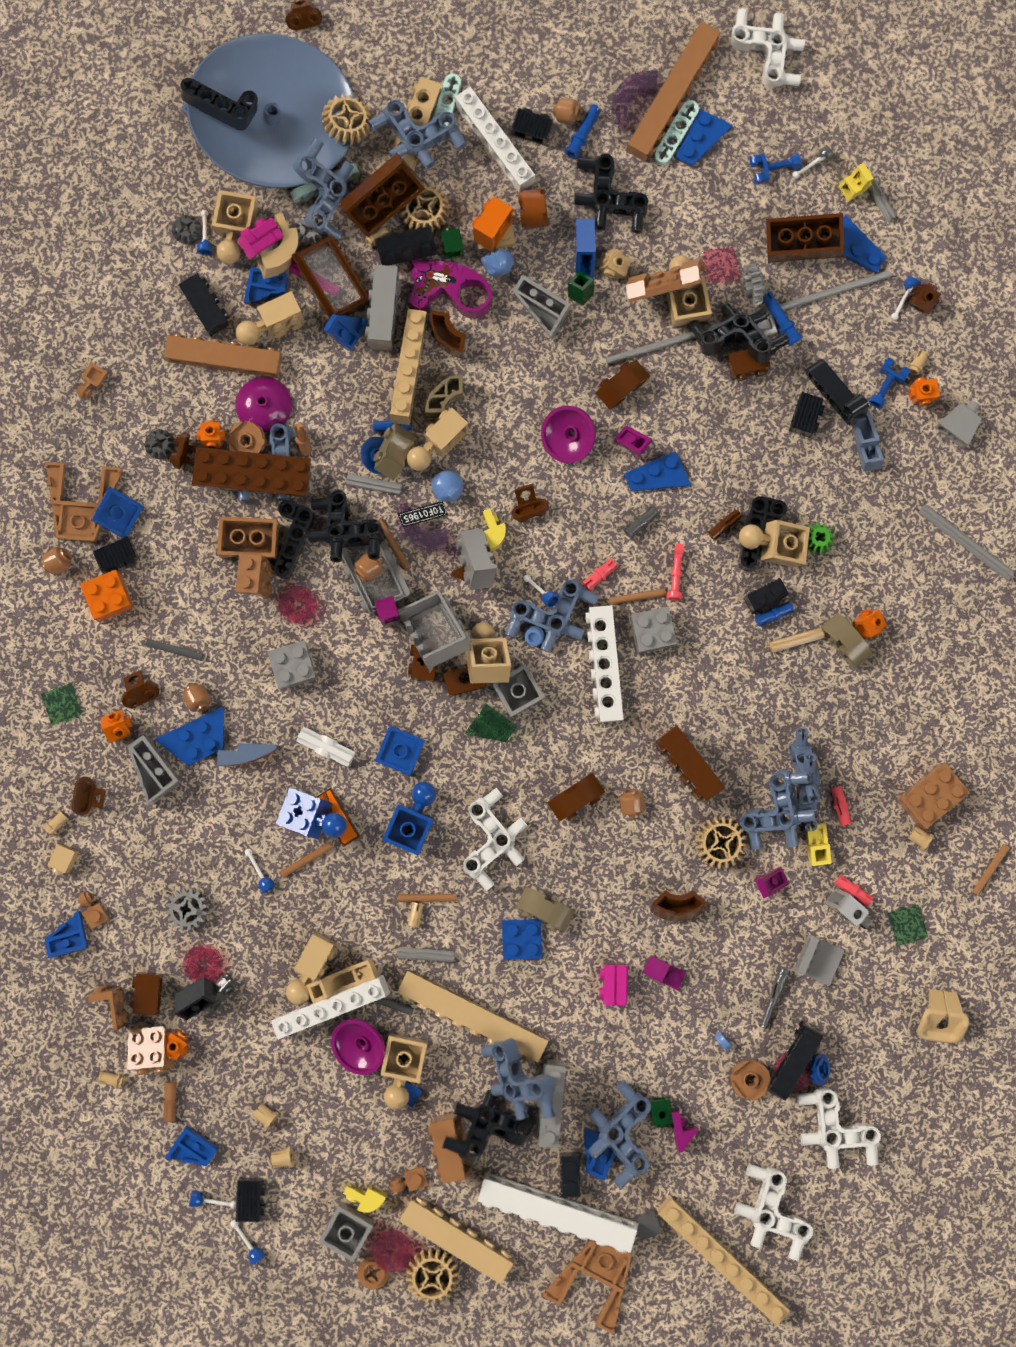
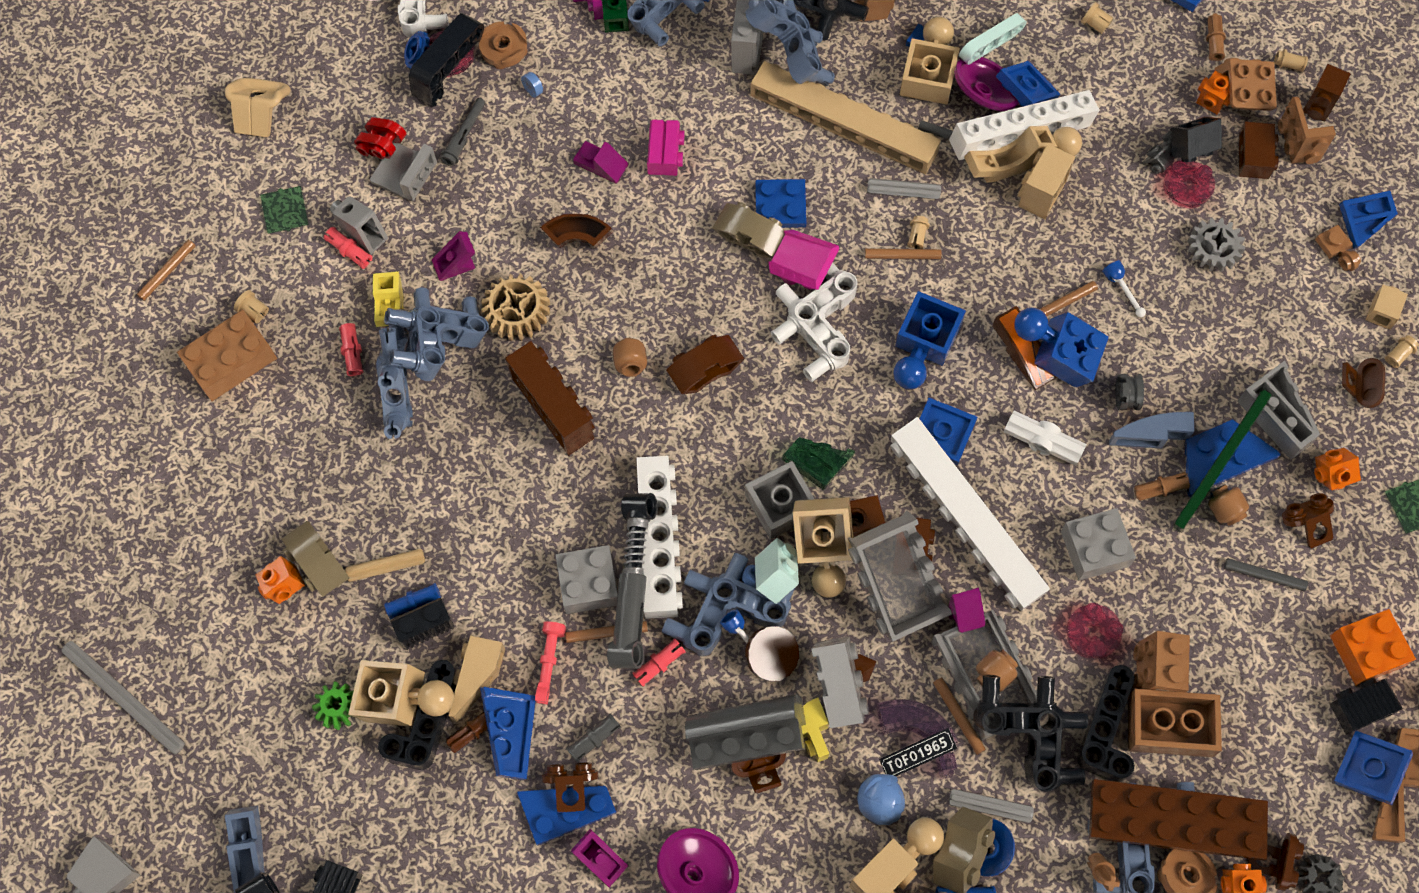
camera: 170 degrees left, 15 degrees down
(88, 1042) = (1326, 92): none -> reddish brown brick
(199, 726) = (1222, 460): none -> dark green tile
(243, 711) = (1162, 486): none -> medium nougat axle
(262, 783) = (1129, 391): none -> dark grey wheel
(325, 1047) = (1026, 84): none -> blue plate
(371, 1070) = (992, 38): none -> light aqua beam
(384, 684) = (969, 514): none -> white brick
(504, 884) = (803, 259): none -> dark pink slope
(521, 635) = (776, 570): none -> light aqua piece
(522, 581) = (772, 653): none -> tile
(539, 522) = (746, 732): none -> dark grey brick
(623, 578) = (626, 648): none -> piece
(655, 493) = (561, 777): none -> reddish brown bracket
(699, 524) = (509, 729): none -> blue wing
(723, 567) = (479, 670): none -> tan slope
(849, 980) = (380, 138): none -> red brick

